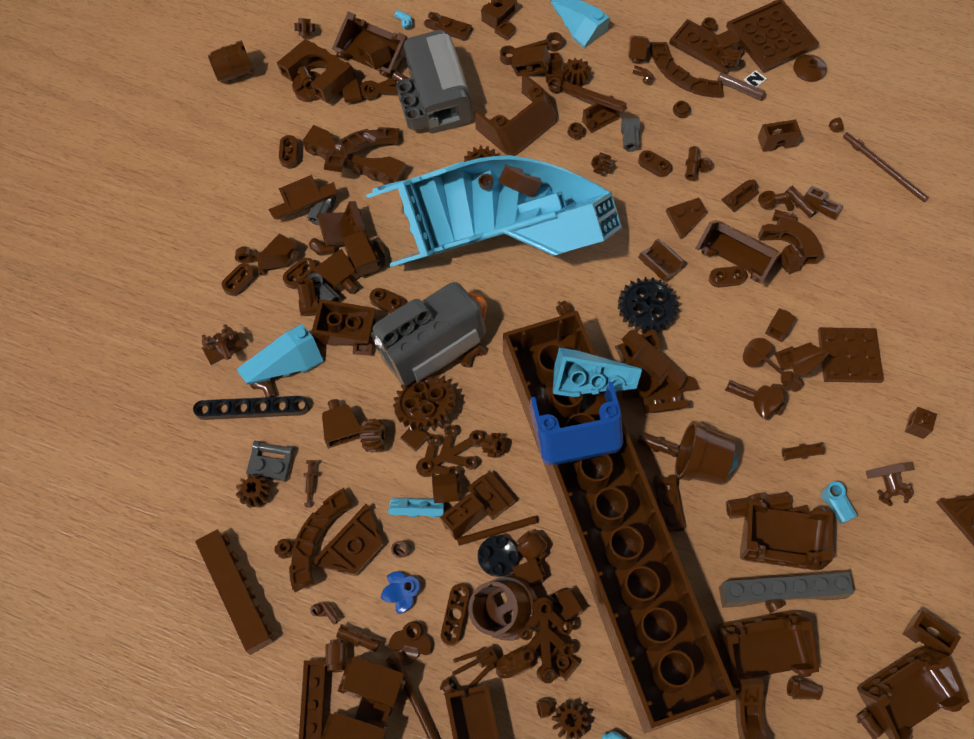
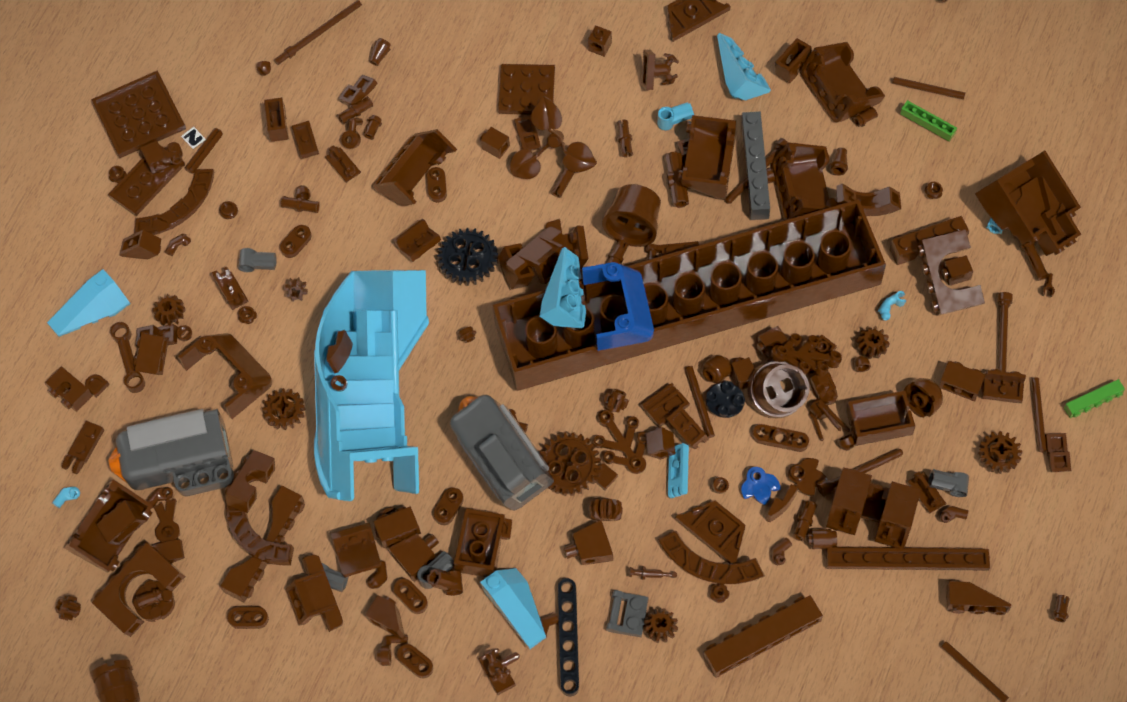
camera: 85 degrees left, 0 degrees up
(374, 609) = (780, 506): none -> reddish brown slope
(399, 131) = (255, 468): none -> reddish brown arch
(594, 97) = (213, 289): reddish brown axle -> none
(686, 215) = (363, 215): reddish brown wing -> none
(762, 162) = (305, 139): none -> reddish brown plate
(791, 259) = (422, 123): reddish brown piece -> none
(795, 234) = (402, 112): reddish brown arch -> none
(810, 68) = (186, 90): reddish brown dish -> none
(816, 620) = (779, 145): none -> reddish brown piece
(871, 218) = (379, 51): none -> reddish brown cone
(904, 575) = (738, 71): none -> medium azure wedge

